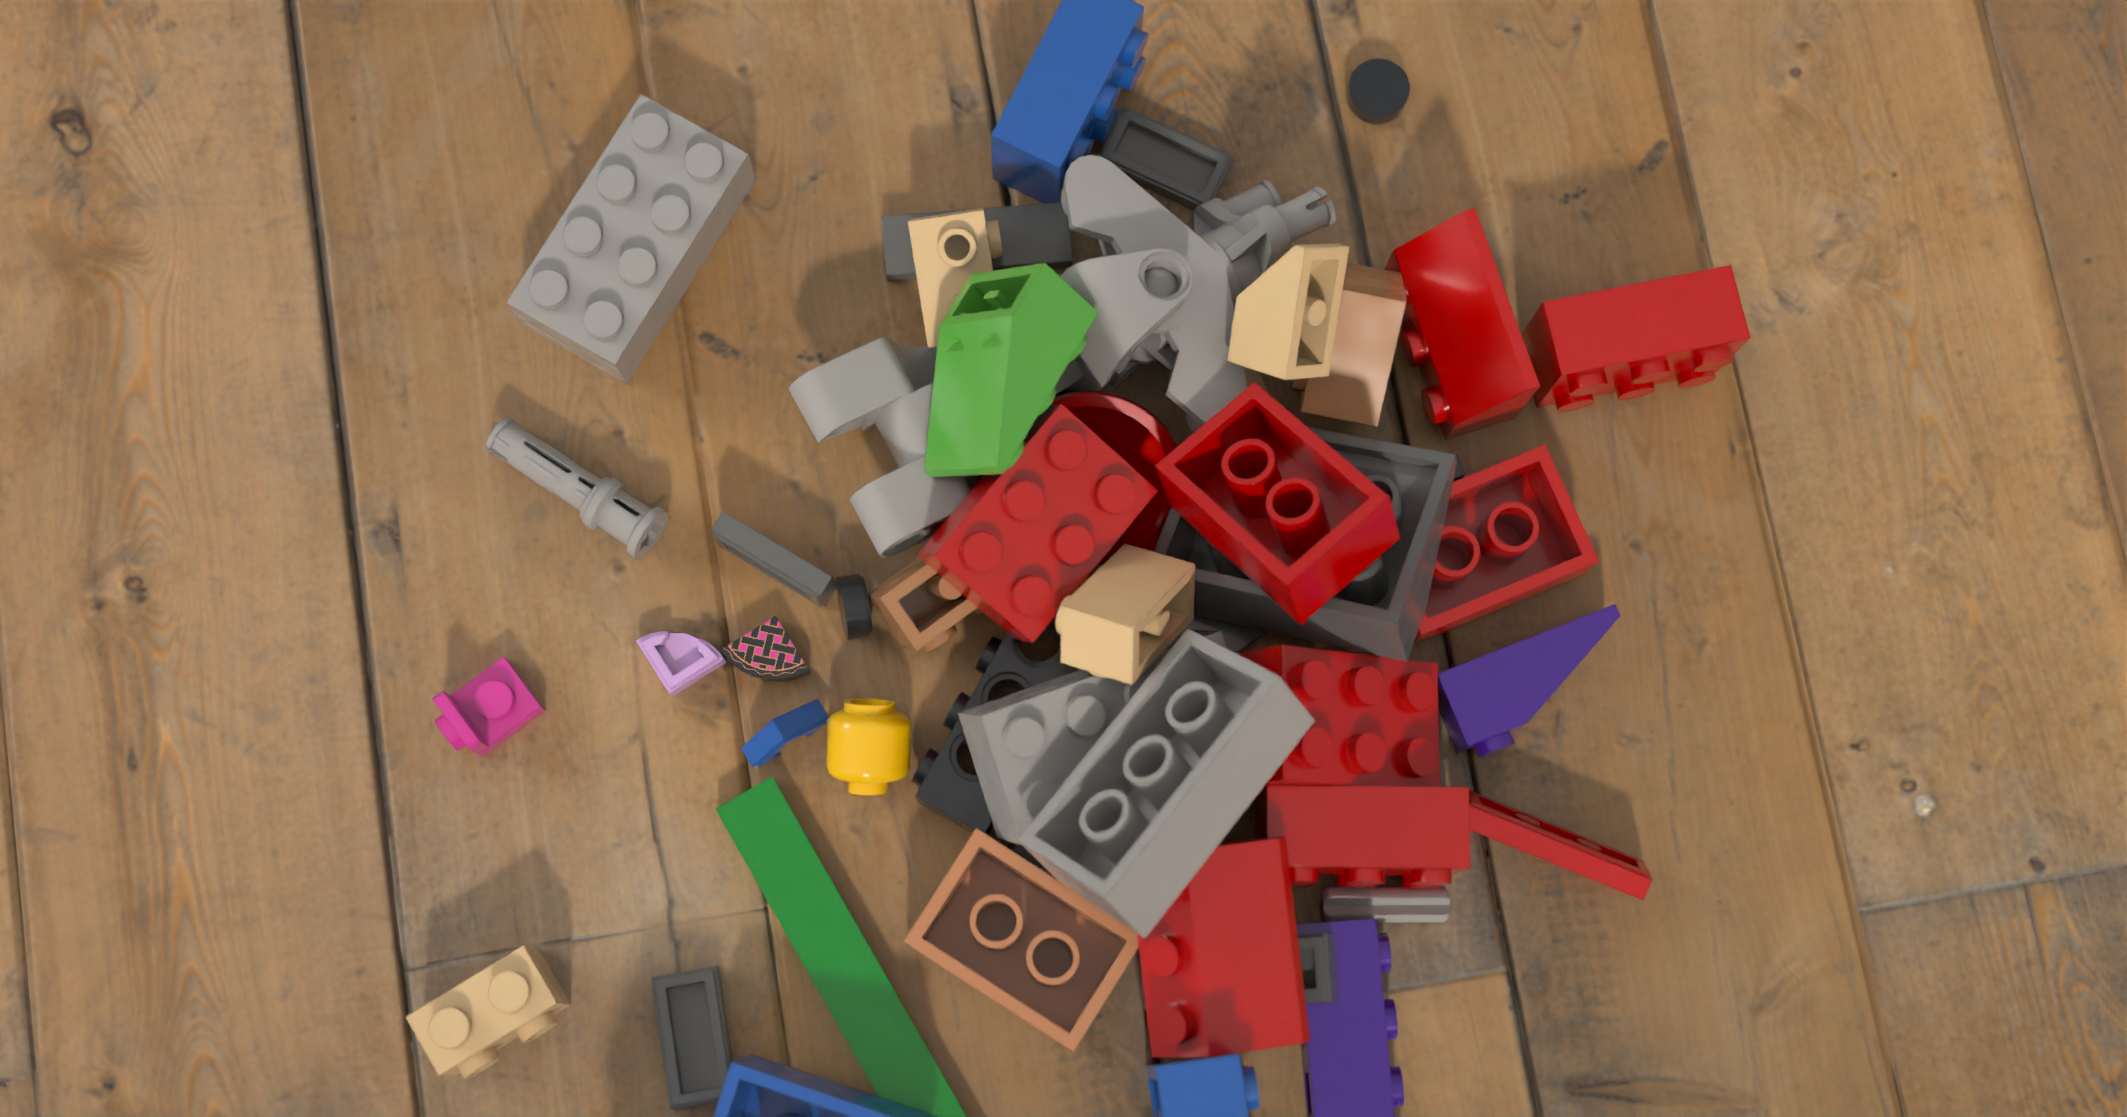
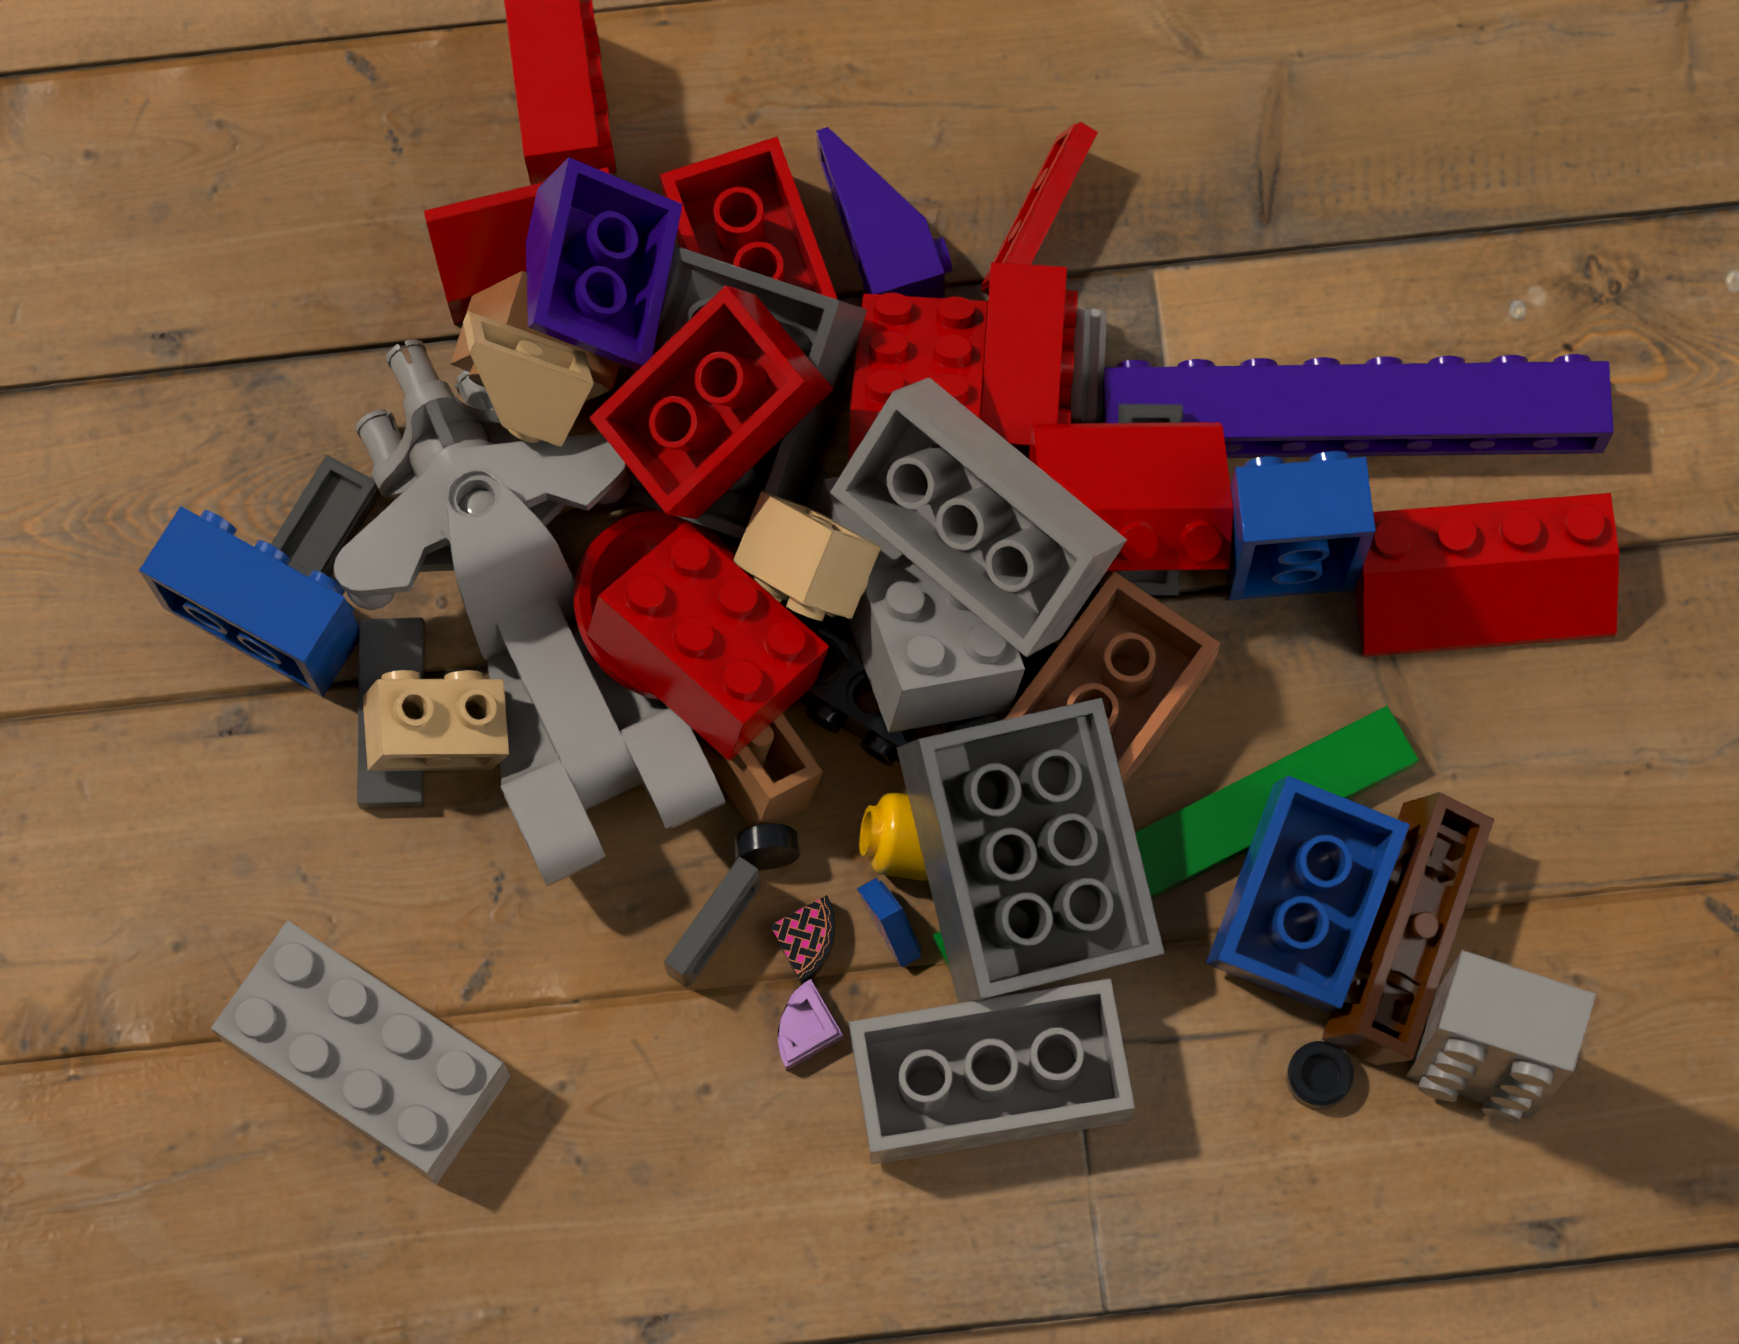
camera: 80 degrees left, 5 degrees down
(487, 709) = (846, 1219): dark pink bracket -> none
(489, 1011) = (1155, 1213): tan brick -> none
(600, 501) = (638, 1097): light grey pin -> none
(624, 838) = (991, 1071): none -> light grey brick
(692, 1035) = (1186, 1023): dark grey tile -> none
(841, 865) = (1029, 850): none -> dark grey slope
(1000, 366) = (555, 659): bright green slope -> none
(1378, 91) = (269, 314): black tile -> none
(1419, 379) = (599, 262): none -> dark purple slope

